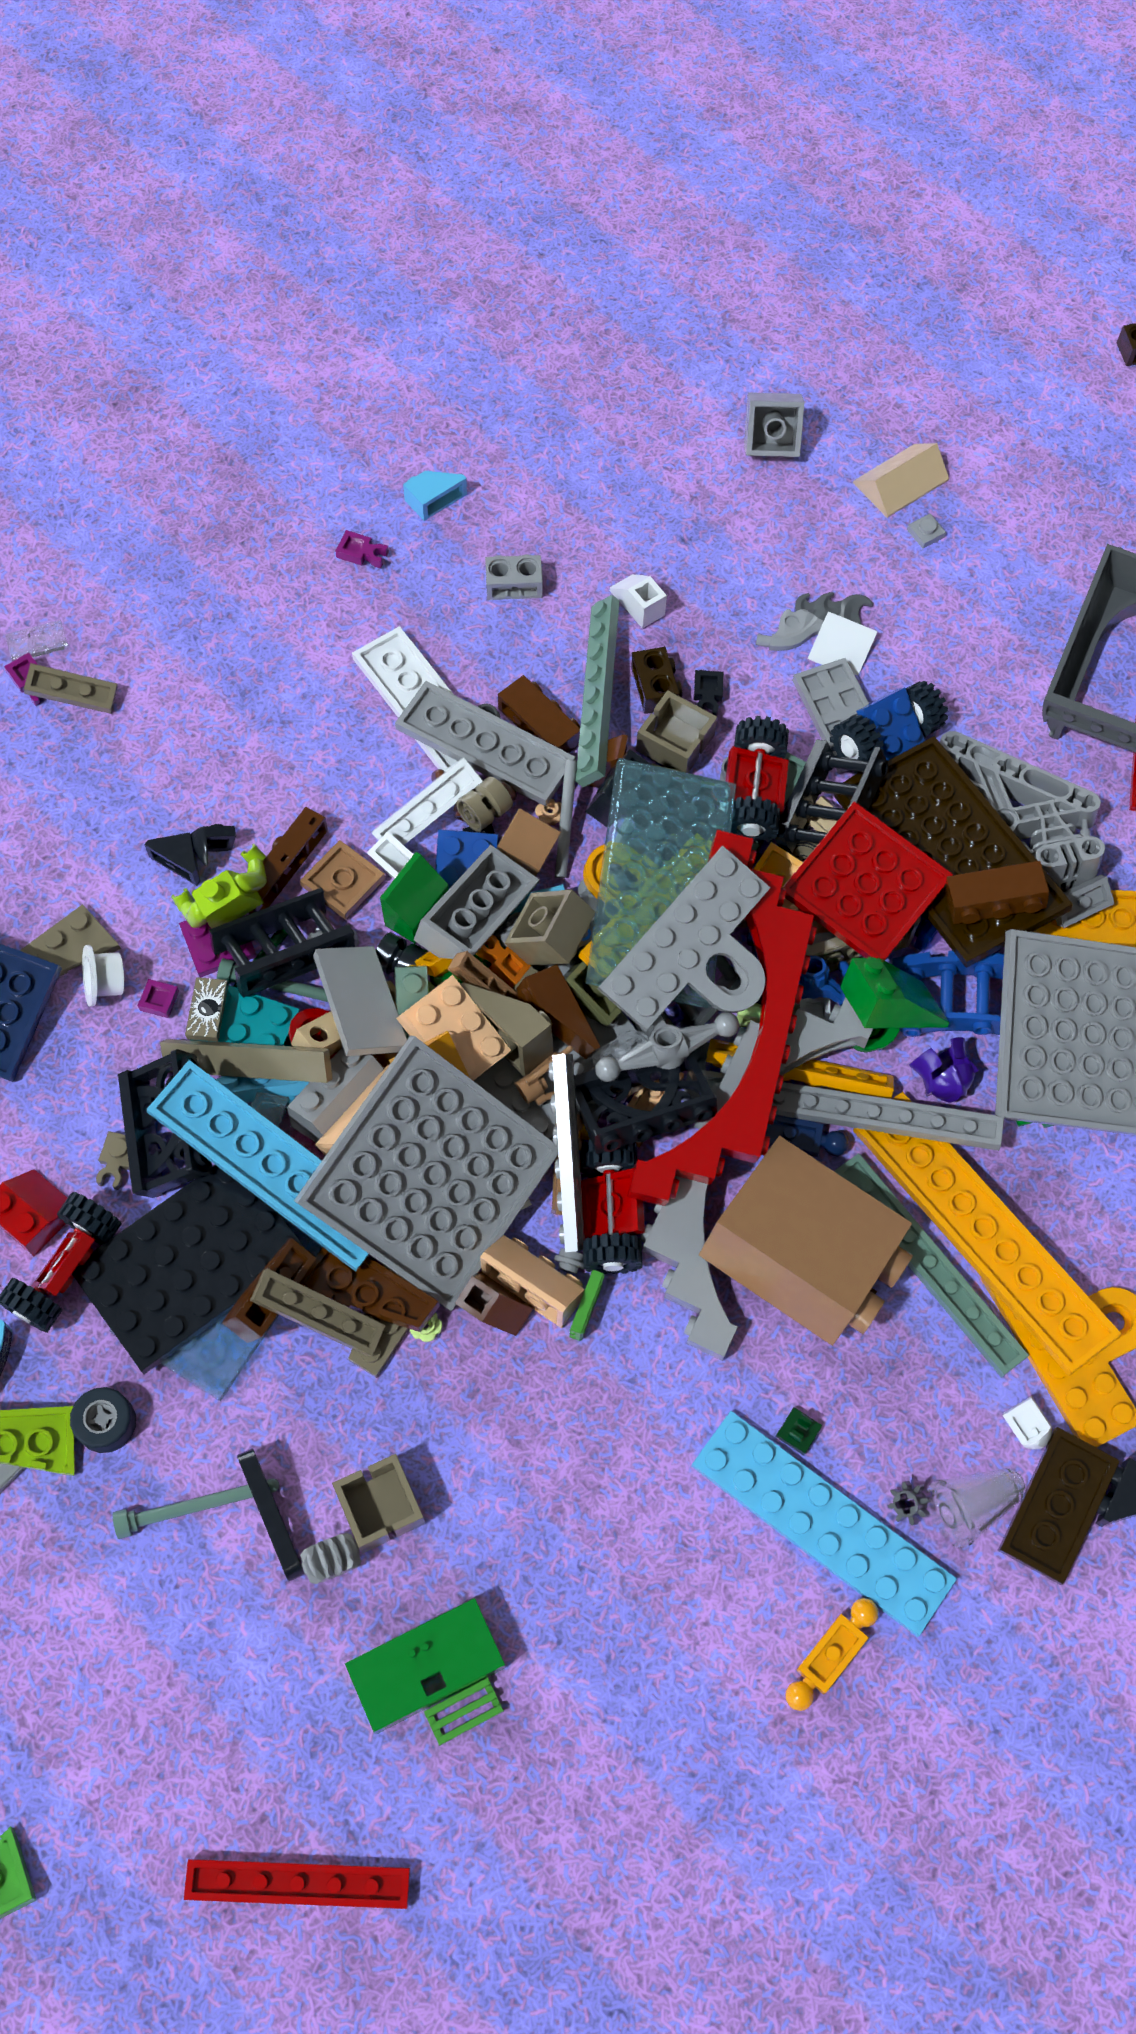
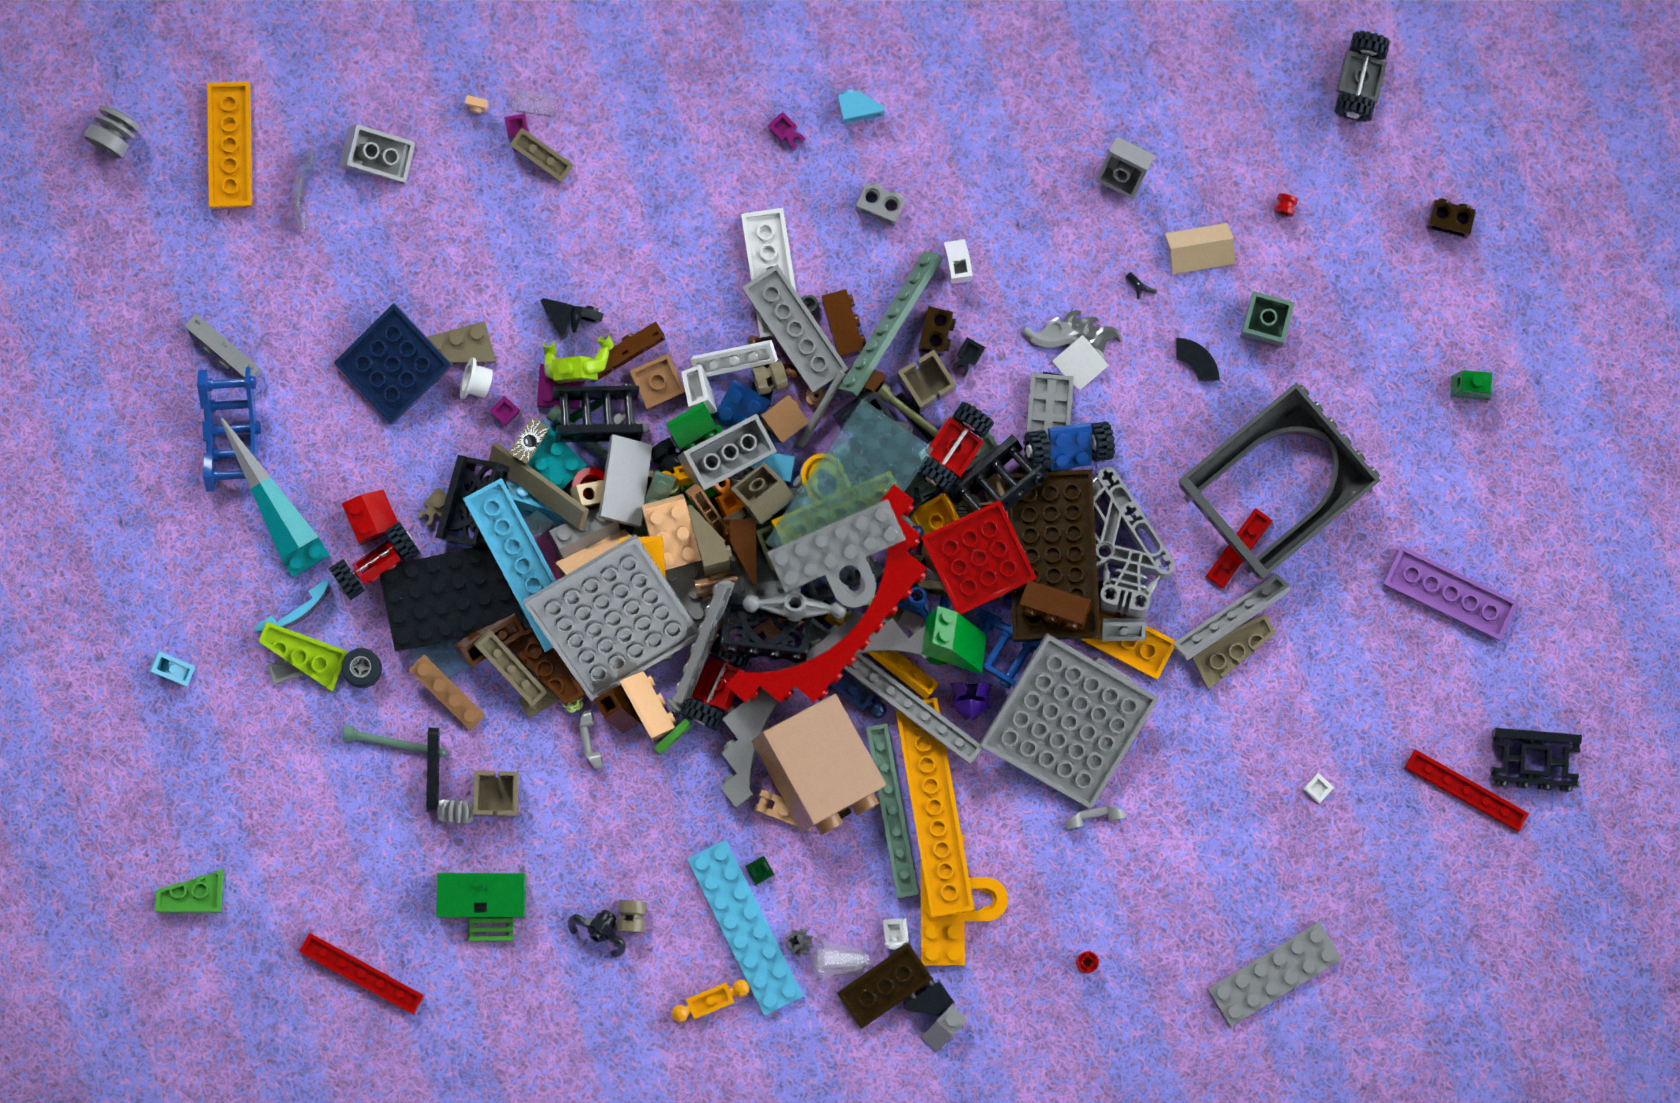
camera: 25 degrees right, 15 degrees up
(241, 1394) = (446, 691): none -> medium nougat plate
(492, 1388) = (593, 757): none -> light grey bar
(623, 1628) = (600, 929): none -> black piece
(653, 1573) = (631, 908): none -> dark tan wheel
(783, 1334) = (780, 810): none -> light nougat plate
(858, 541) = (1139, 286): none -> black bar
(926, 531) = (1192, 299): light grey plate -> none
(967, 398) = (1285, 205): none -> red wheel
(968, 249) = (1361, 76): none -> plate
(971, 586) = (1198, 358): none -> black tile
(1024, 510) = (1267, 319): none -> sand green brick

